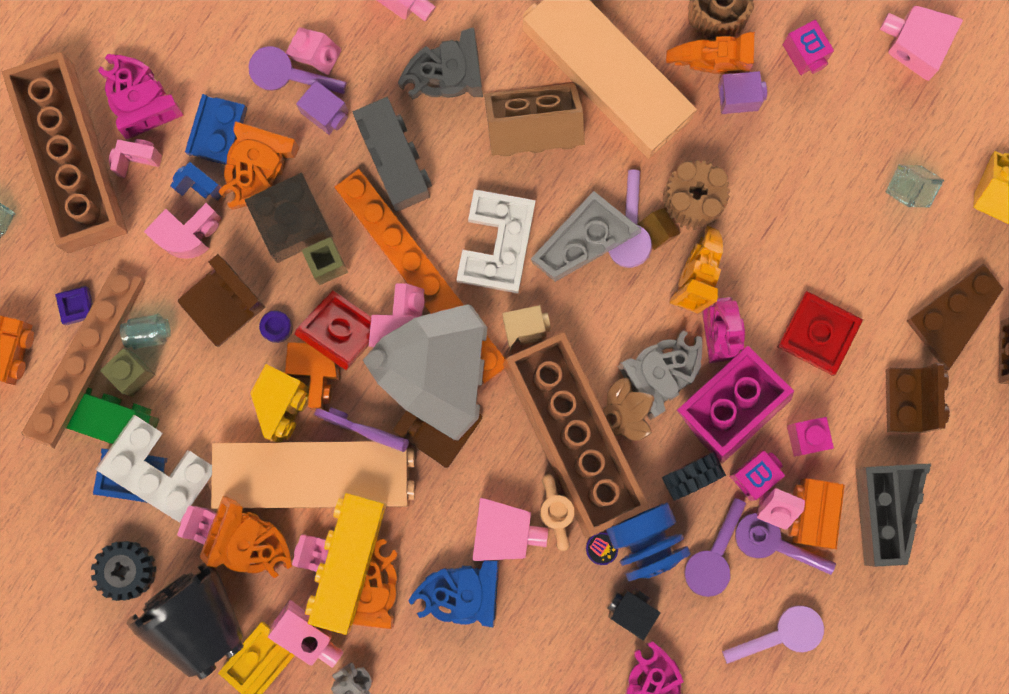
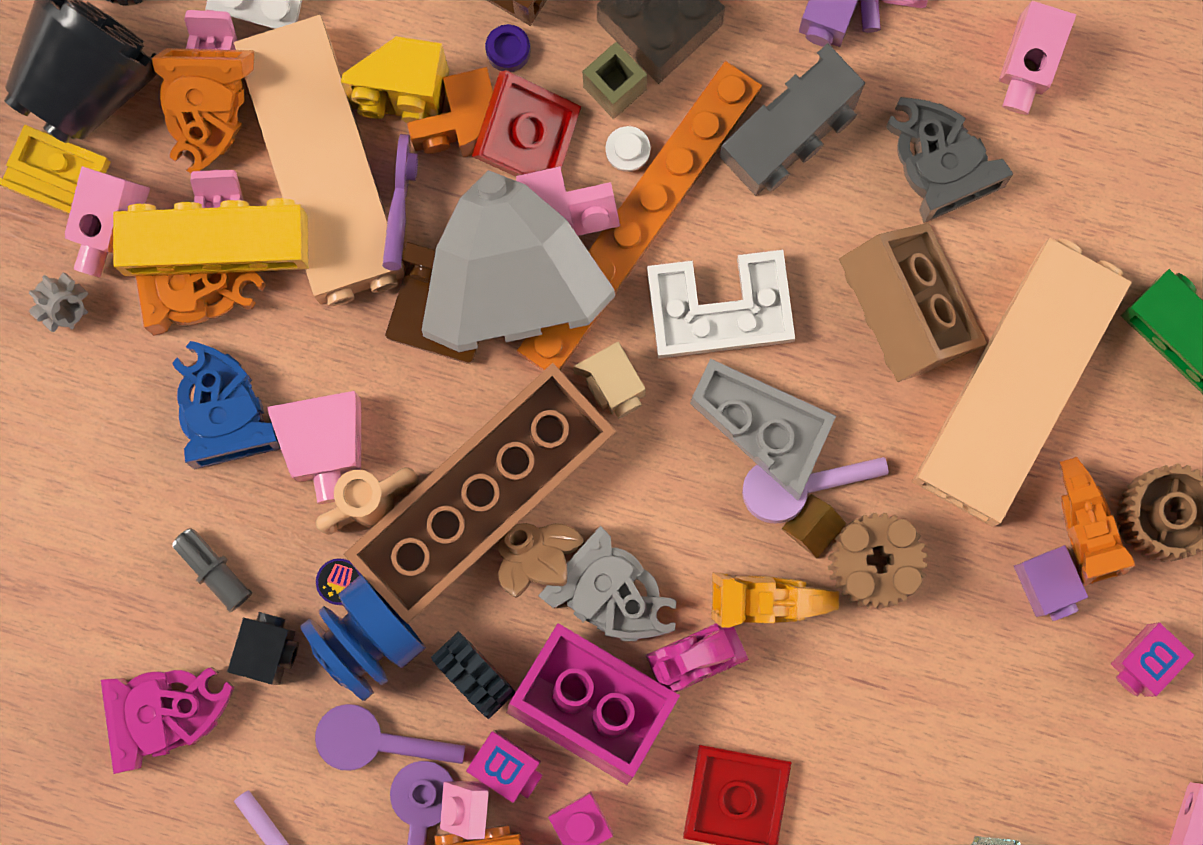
camera: 75 degrees right, 0 degrees up
(372, 268) = (628, 149): none -> white plate
(567, 633) = (211, 569): none -> dark grey axle

